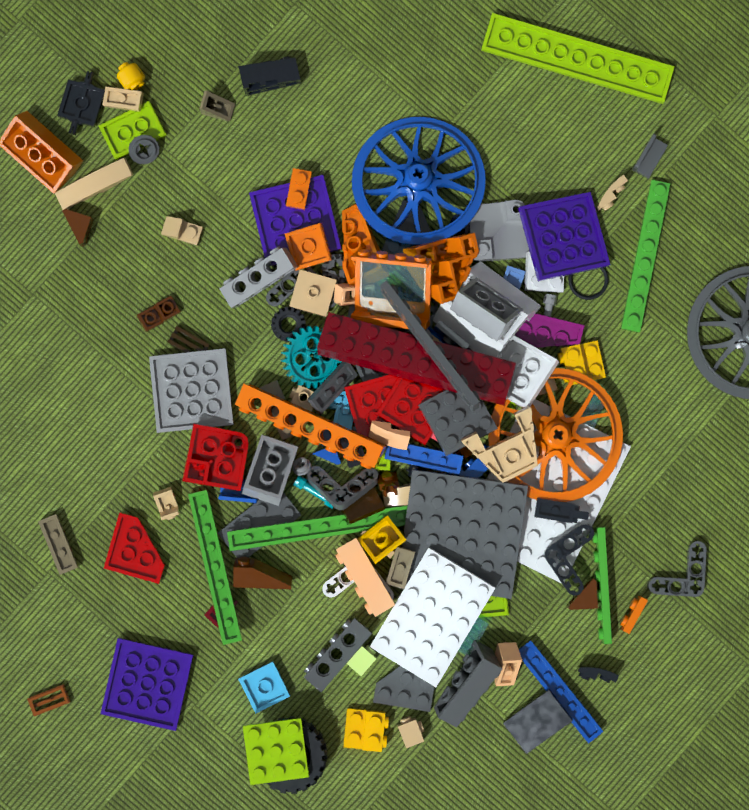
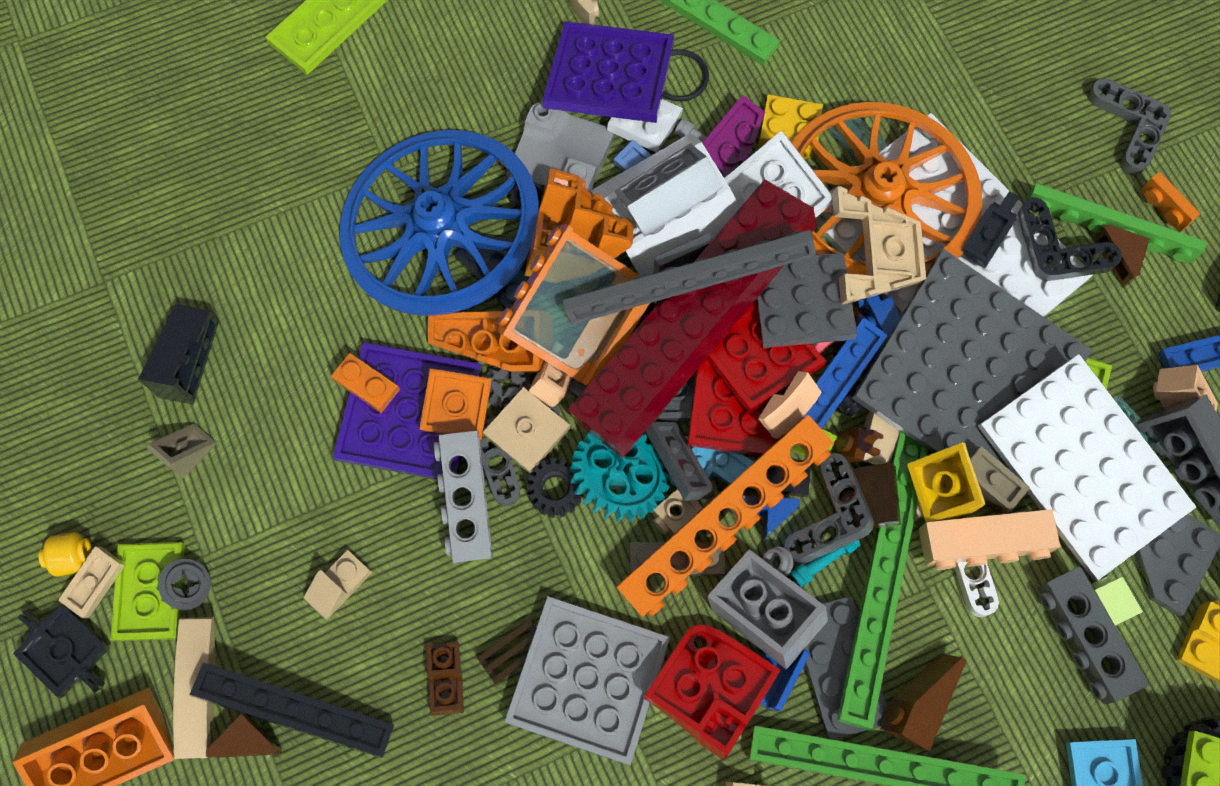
camera: 65 degrees left, 15 degrees down
(104, 242) = (291, 710): none -> black plate

